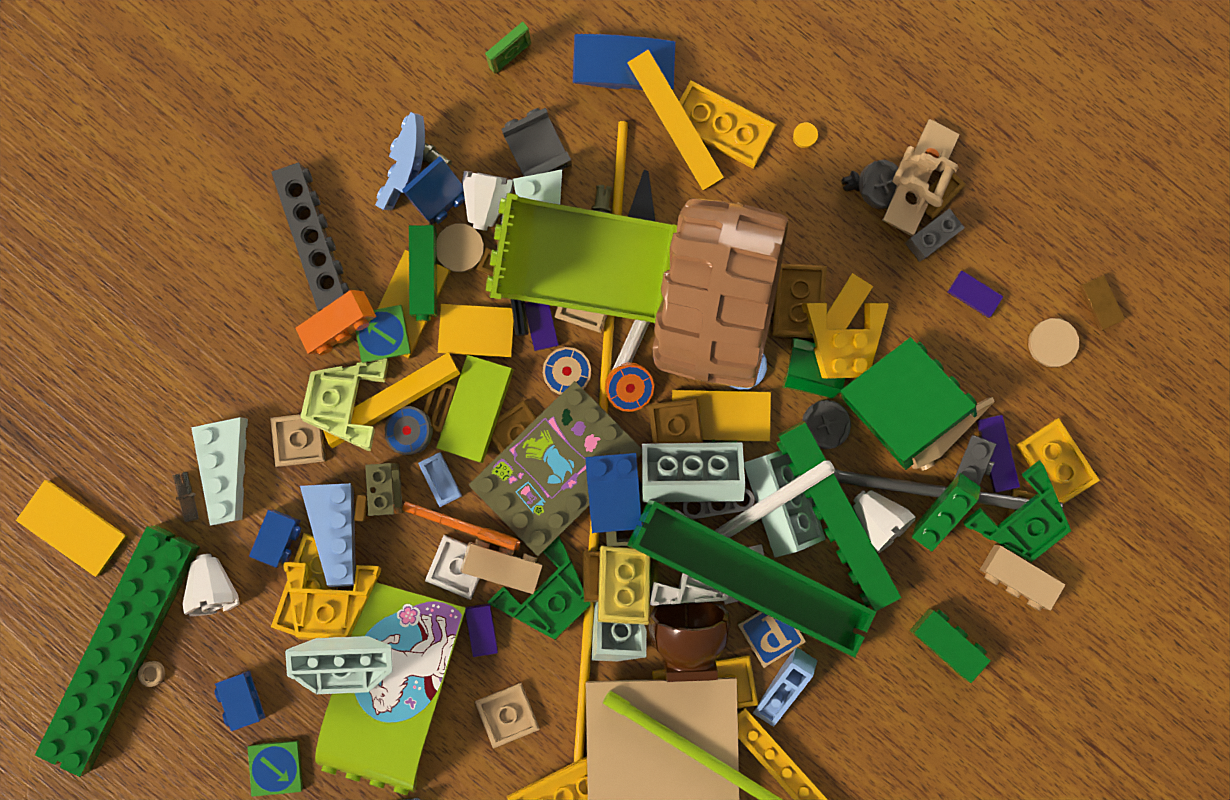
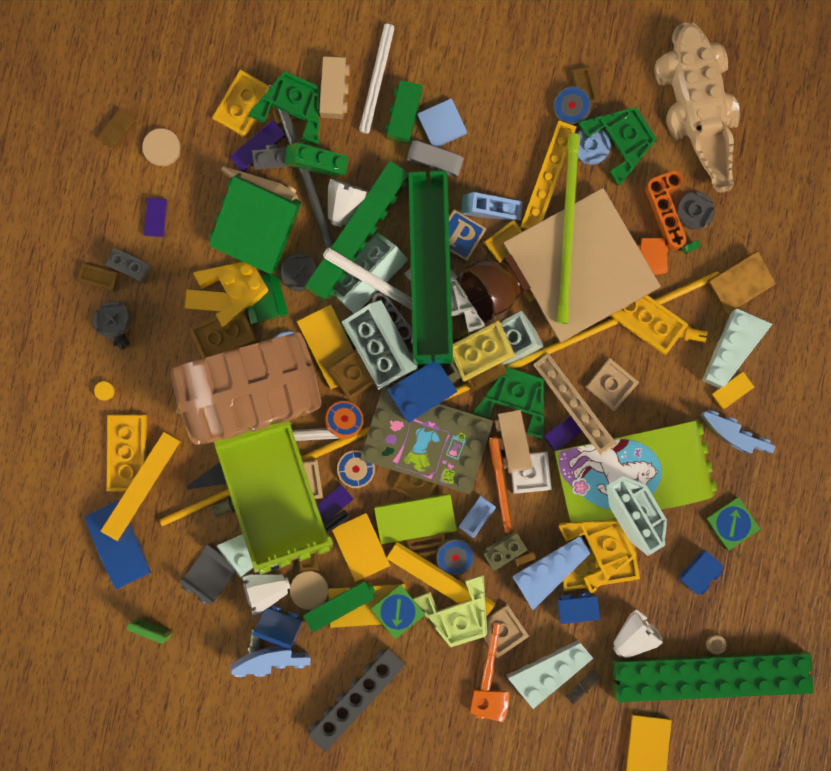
camera: 115 degrees left, 0 degrees up
(226, 383) = (486, 701): none -> orange piece
(336, 322) = (407, 647): orange brick -> none
(505, 660) = (575, 404): none -> tan plate
(877, 651) = (435, 158): none -> light grey beam
(914, 172) = (92, 302): tan piece -> none
(914, 682) = (442, 123): none -> light blue tile
(1007, 634) = (376, 78): none -> white axle

